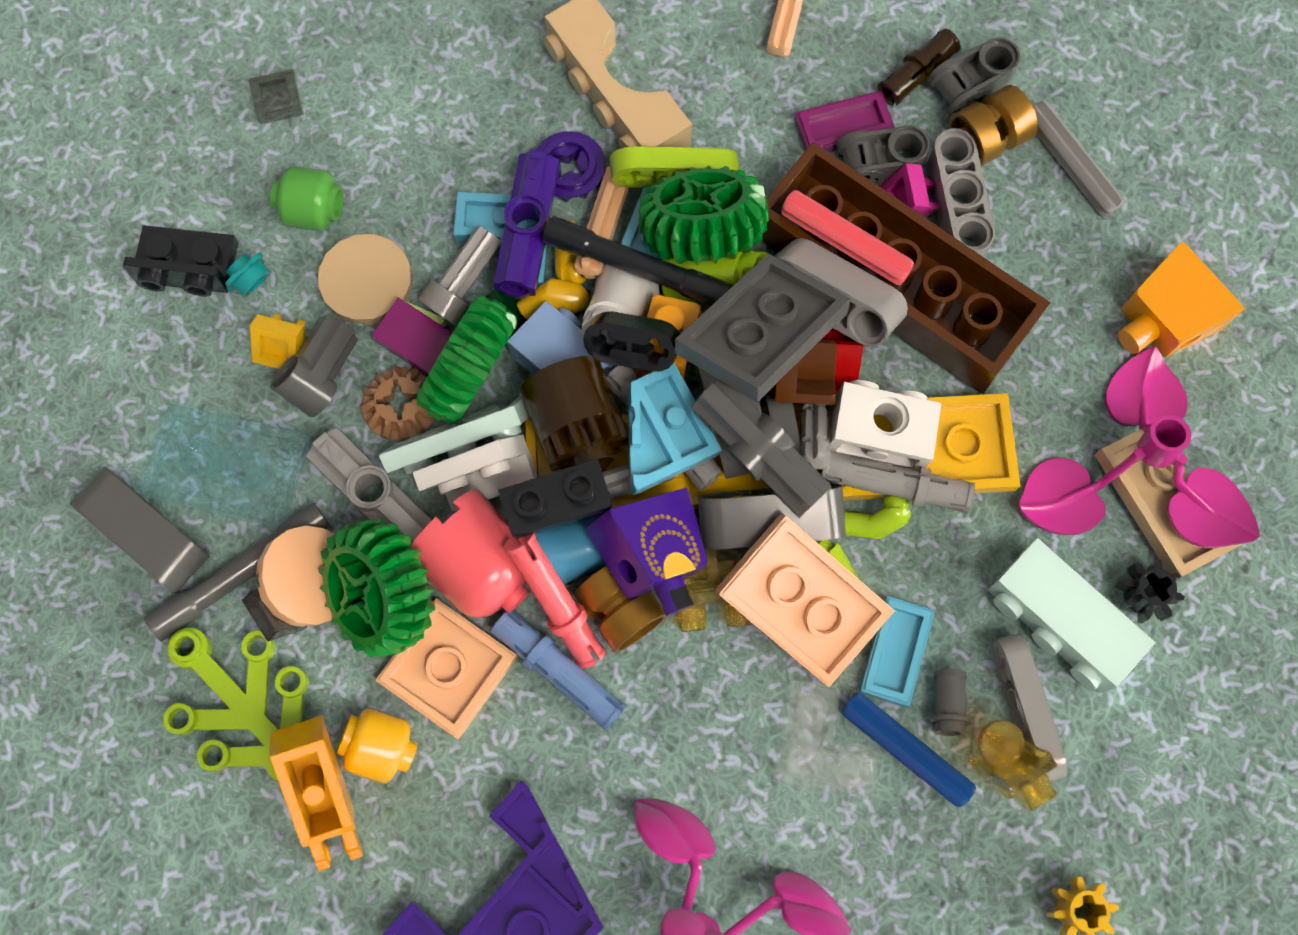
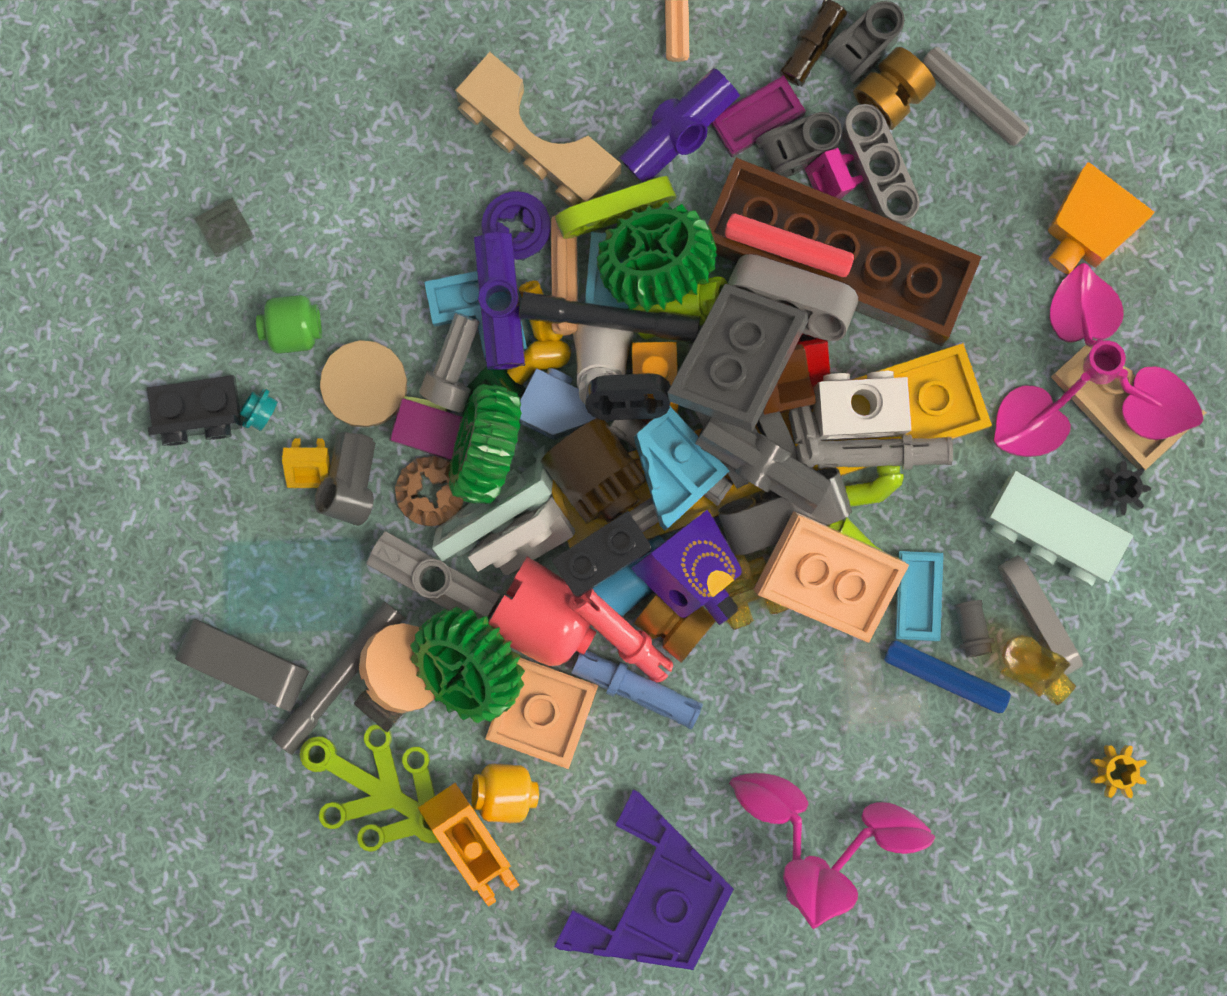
camera: 10 degrees left, 10 degrees up
(764, 107) = (679, 126): none -> dark purple piece

